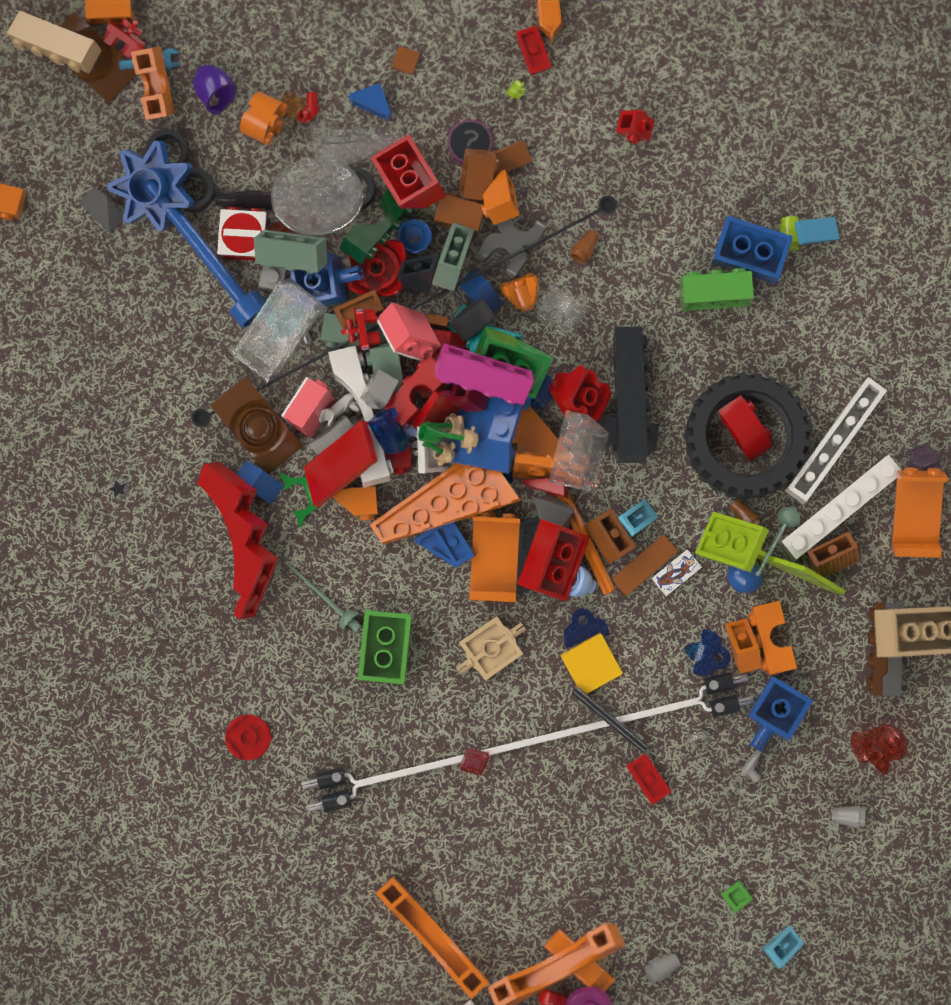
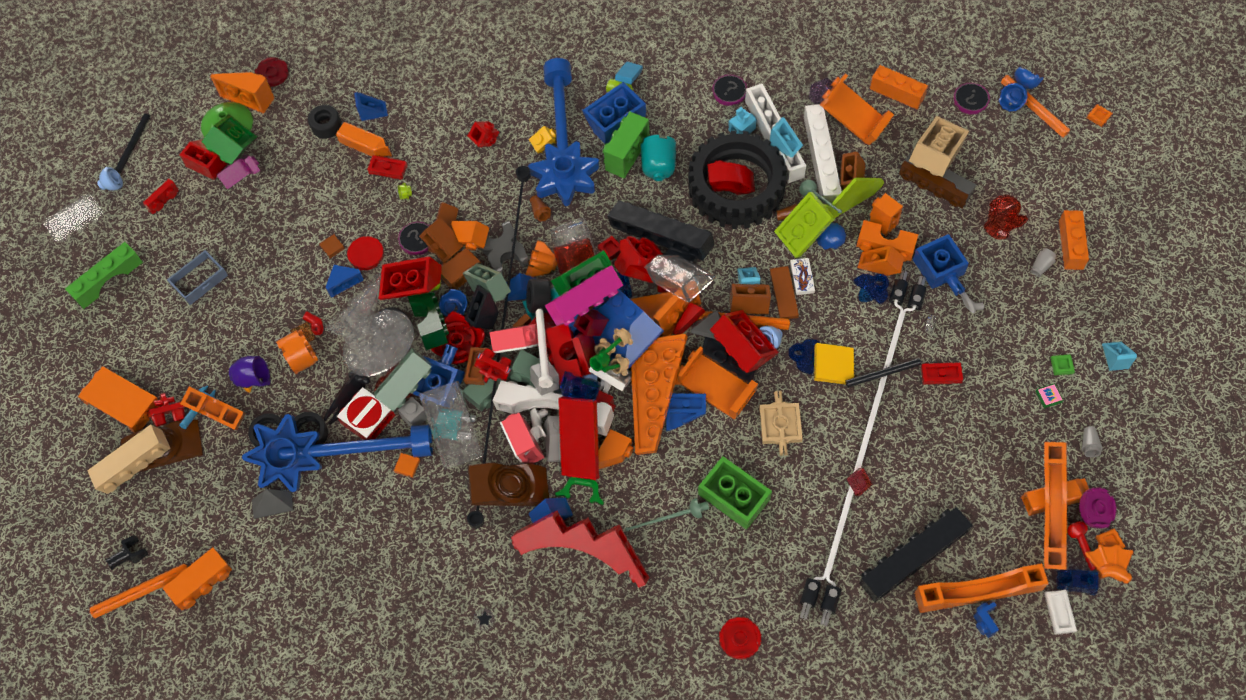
camera: 55 degrees left, 20 degrees down
(219, 309) = (406, 465): none -> orange tile
(368, 396) = (545, 380): none -> white bar
(400, 959) = (984, 621): none -> blue bracket
(419, 101) = (365, 253): none -> red tile
(432, 857) = (915, 554): none -> black brick
(542, 327) = (572, 254): none -> clear red slope
(583, 353) = (611, 247): none -> red plate
(645, 242) = (564, 167): none -> blue piece
(674, 194) = (543, 137): none -> yellow bracket
(691, 900) = (1049, 395): none -> tile
(720, 335) = (658, 157): none -> teal cylinder
(800, 619) = (886, 212): none -> orange brick
(821, 462) = (784, 138): none -> medium azure slope
(828, 398) = (742, 122): none -> medium azure brick
(868, 355) = (729, 90): none -> black tile
(897, 835) = (1073, 240): none -> orange brick

